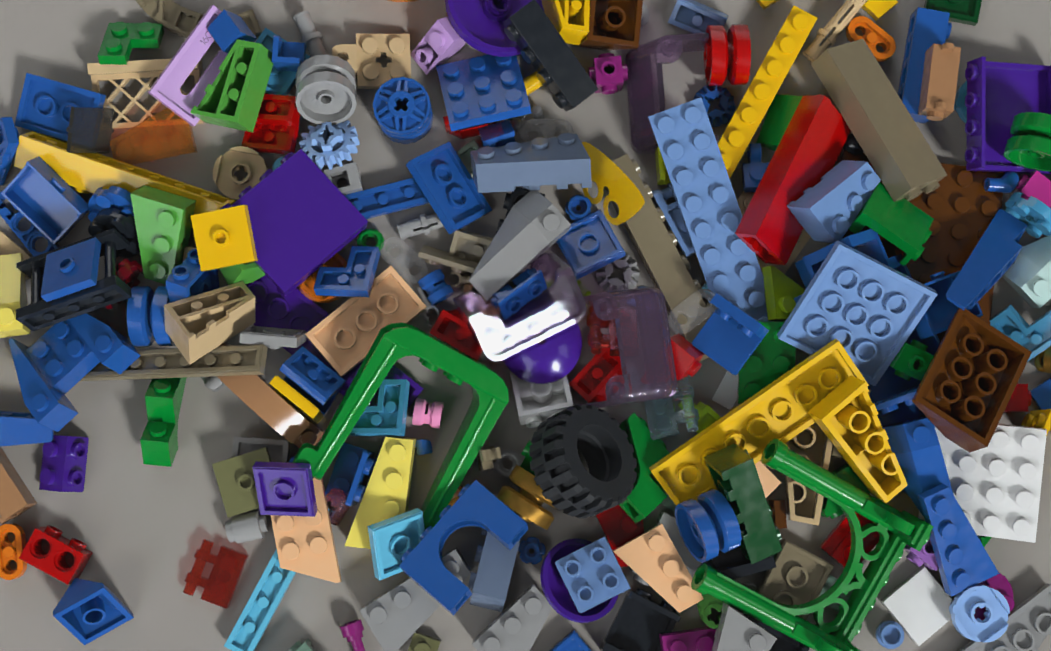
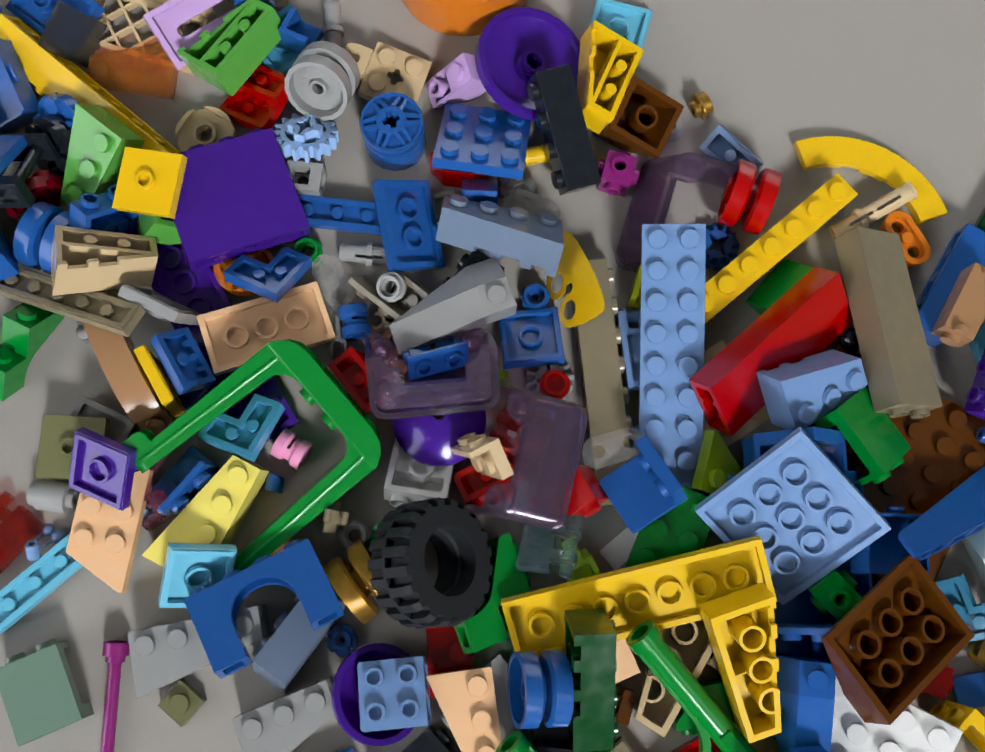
camera: 20 degrees right, 5 degrees down
(249, 573) = (32, 547): none -> medium blue piece
(452, 253) = (383, 286): none -> light grey plate
(592, 357) = (485, 454): none -> tan bracket
(624, 276) = (554, 384): none -> red plate
(753, 170) = (732, 326): blue plate -> none

